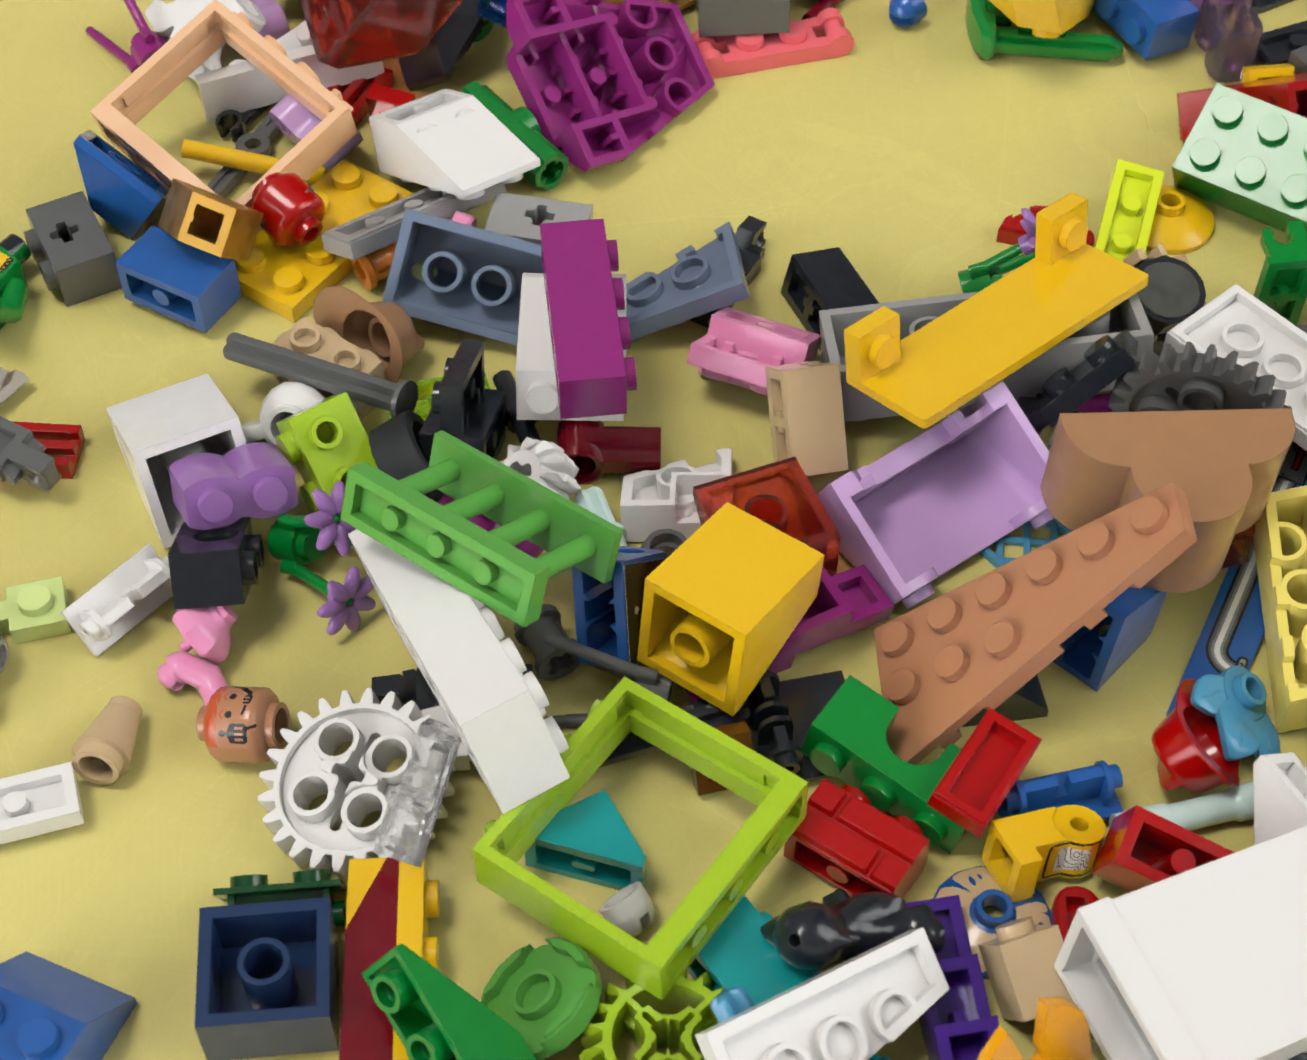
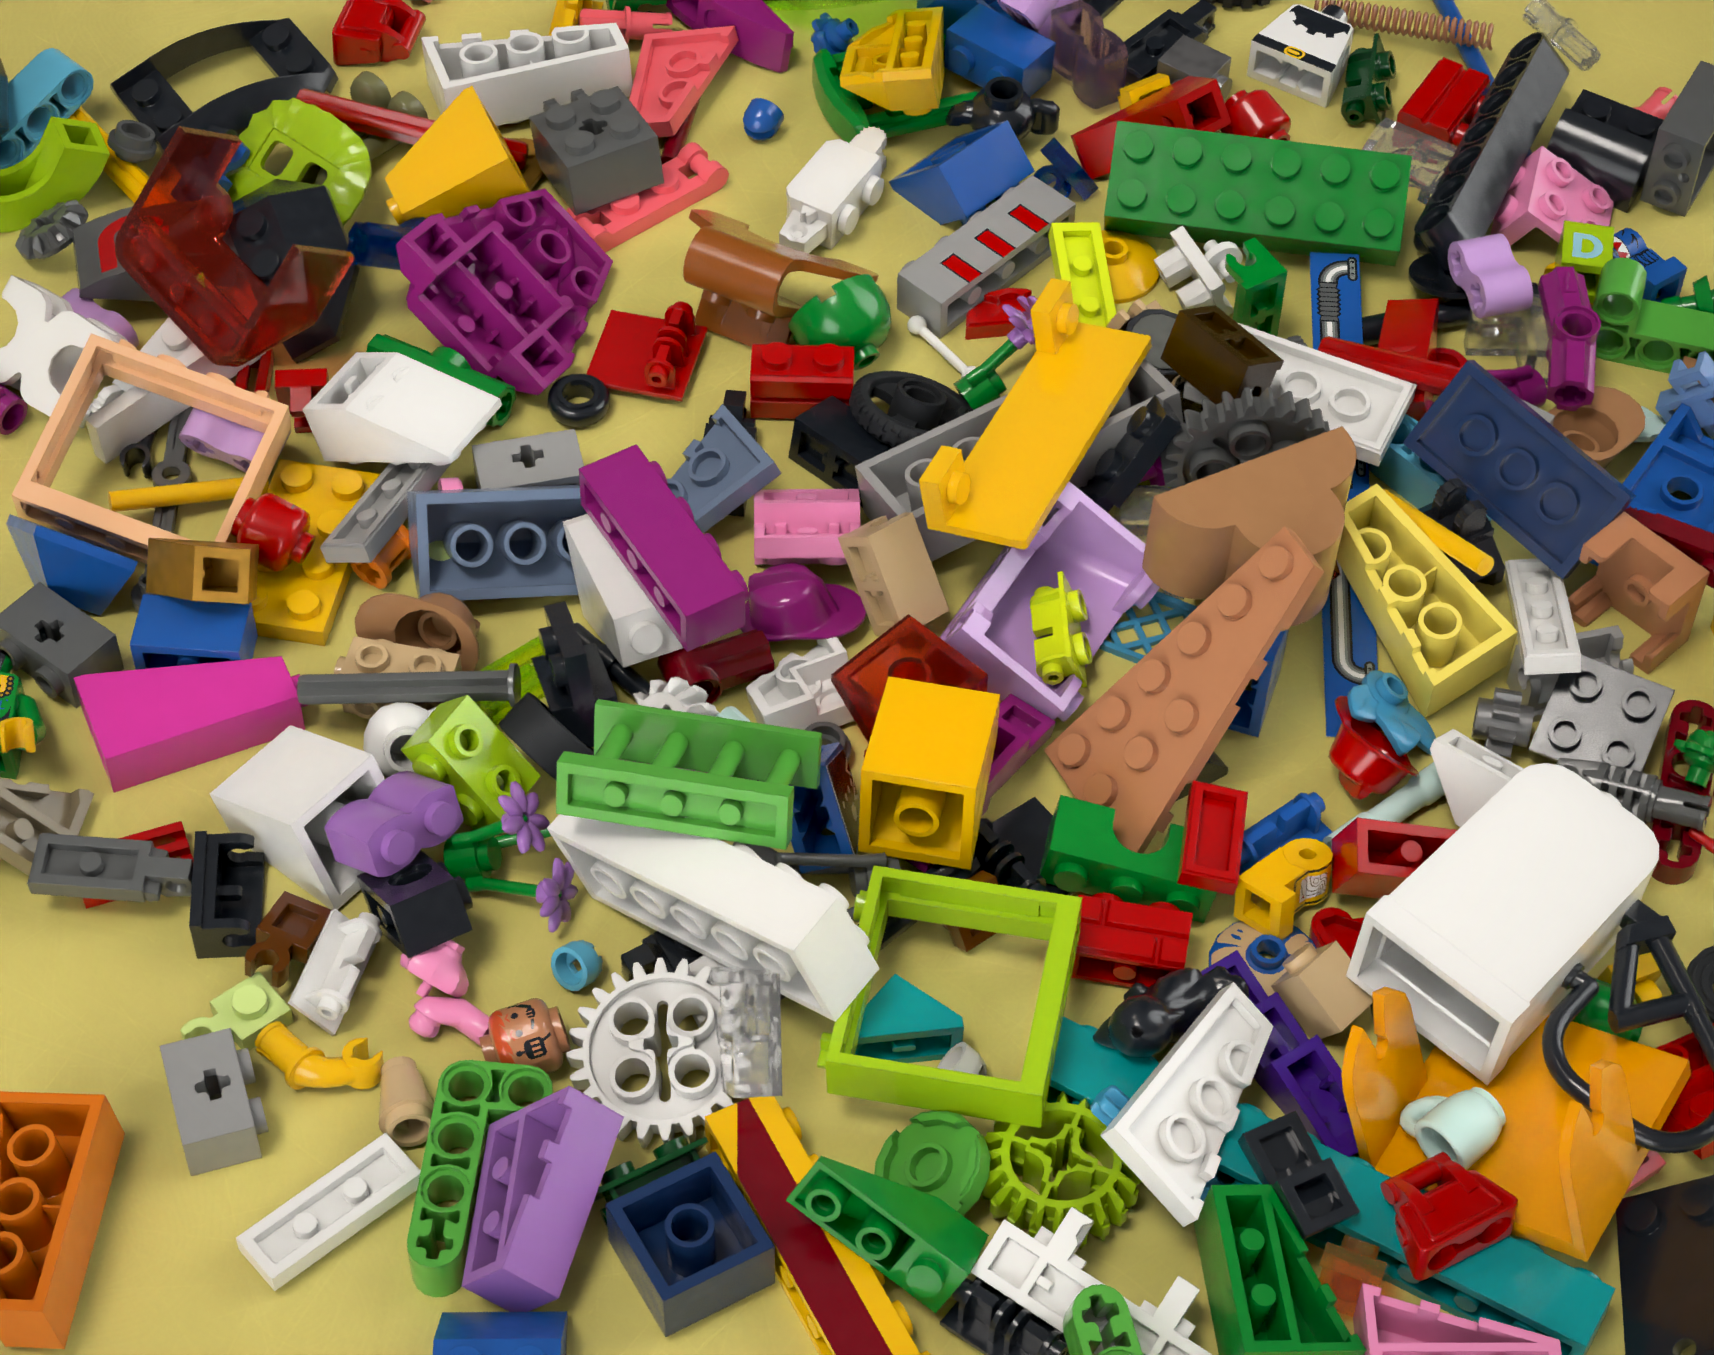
camera: 25 degrees left, 0 degrees up
(51, 677) = (309, 1066): none -> yellow piece
(59, 883) = (457, 1176): none -> bright green beam
(74, 501) = (225, 894): none -> black hinge
(95, 554) = (286, 934): none -> reddish brown plate
(132, 338) = (185, 714): none -> dark pink slope
(151, 879) = (537, 1197): none -> medium lavender wedge
(333, 671) = (566, 972): none -> medium azure hinge
(621, 199) = (578, 386): none -> black piece
(703, 167) = (649, 352): none -> red hinge
(708, 418) = (798, 605): none -> magenta piece
(800, 107) = (744, 277): none -> dark orange piece
(814, 221) = (798, 377): none -> red brick
(882, 191) = (852, 317): none -> green cylinder
(908, 274) = (914, 402): none -> black wheel
(937, 81) = (834, 191): none -> white hinge
(951, 509) = (1068, 648): none -> neon yellow hinge
(956, 216) = (918, 325): none -> white hinge
(1042, 171) = (982, 255): none -> light grey brick
(1066, 100) = (965, 174): none -> blue slope
(1126, 59) = (1006, 100): none -> black piece
(1155, 126) = (1065, 172): none -> clear blue tile
(1209, 307) = (1218, 354): none -> dark brown hinge
(1234, 232) = (1206, 270): none -> white hips

